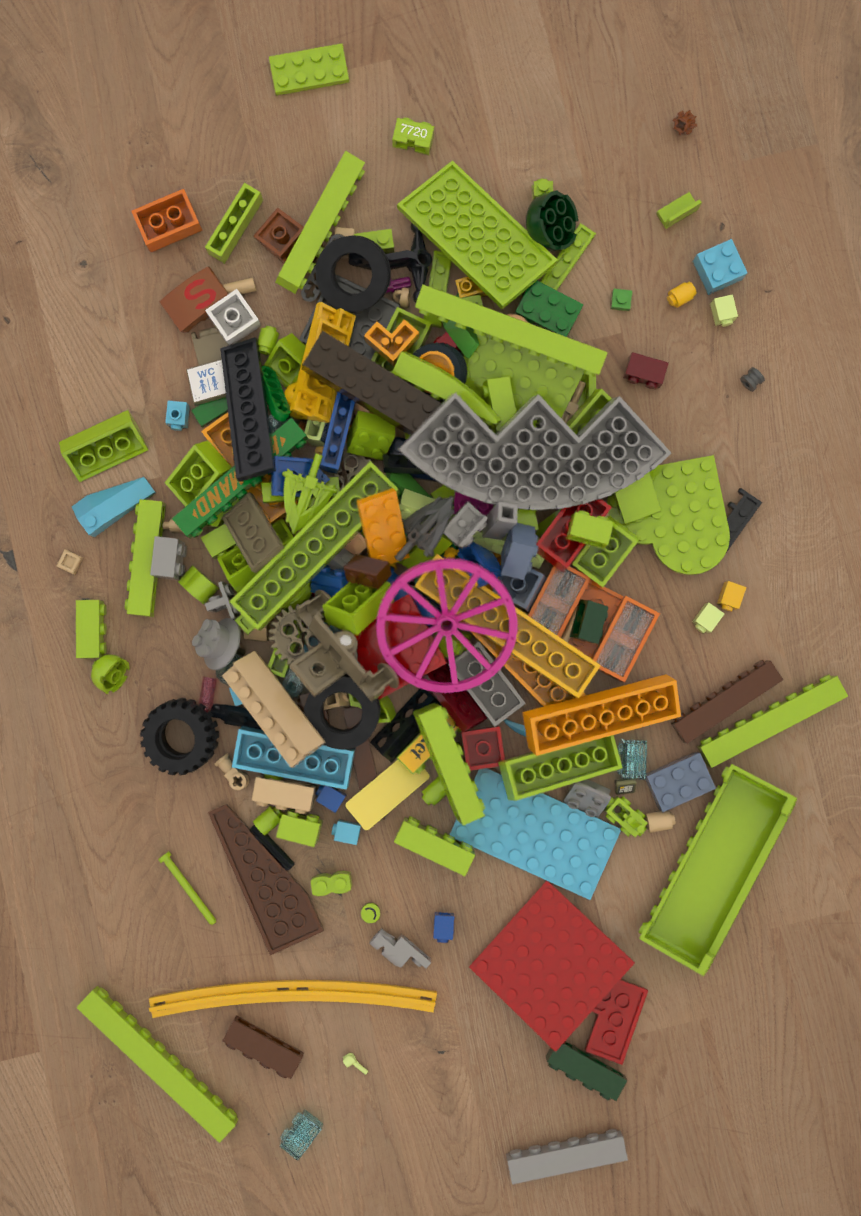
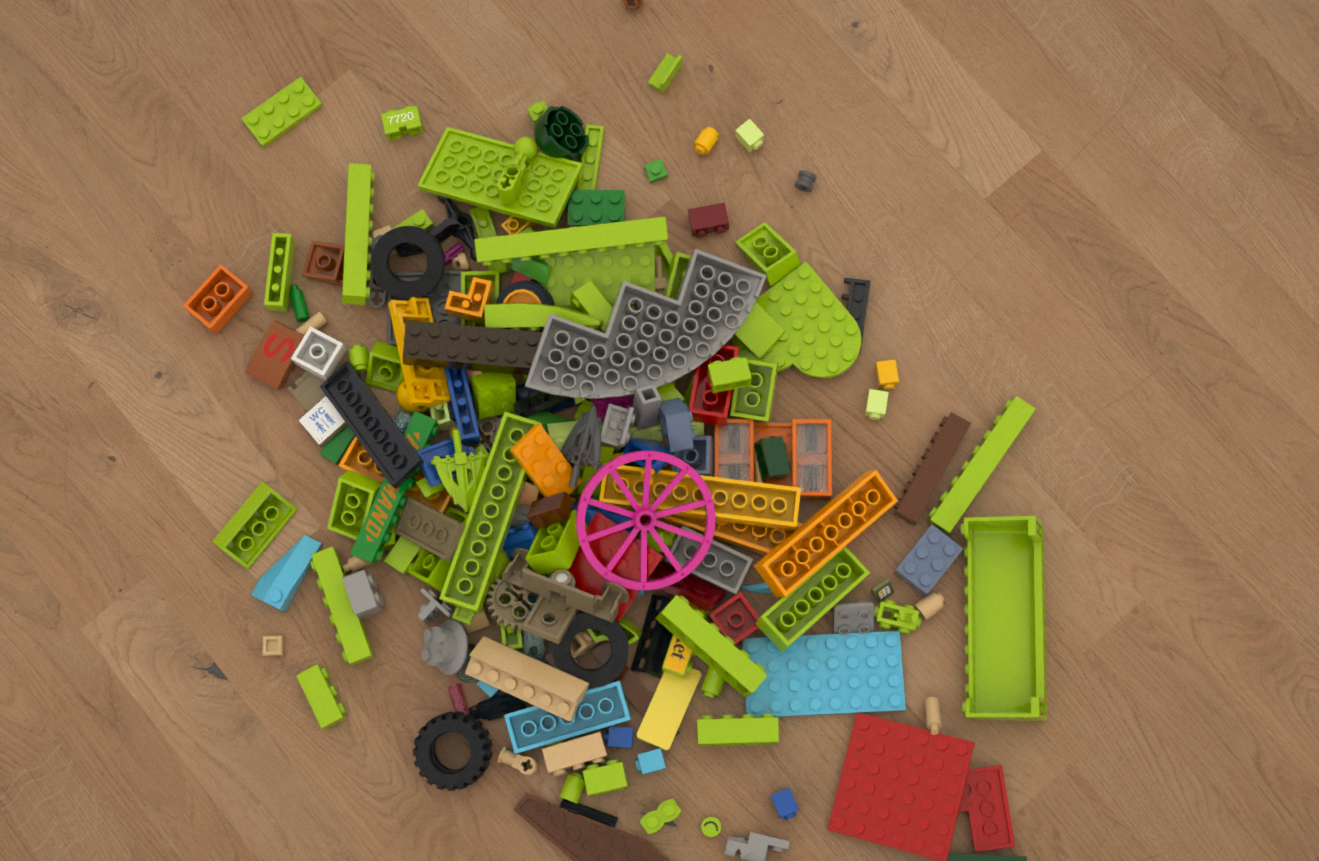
camera: 20 degrees left, 10 degrees down
(109, 673) = (358, 726): lime cylinder -> none
(177, 415) = (309, 464): medium azure brick -> none
(198, 584) = (402, 605): lime piece -> none
(238, 261) = (299, 304): none -> green cylinder
(274, 395) = (391, 402): green beam -> none
(486, 240) = (511, 177): none -> lime beam
(611, 918) = (933, 715): none -> tan cylinder
(633, 759) = (876, 562): clear light blue brick -> none
(683, 430) = (768, 253): none -> lime slope
(720, 266) = (726, 101): medium azure brick -> none

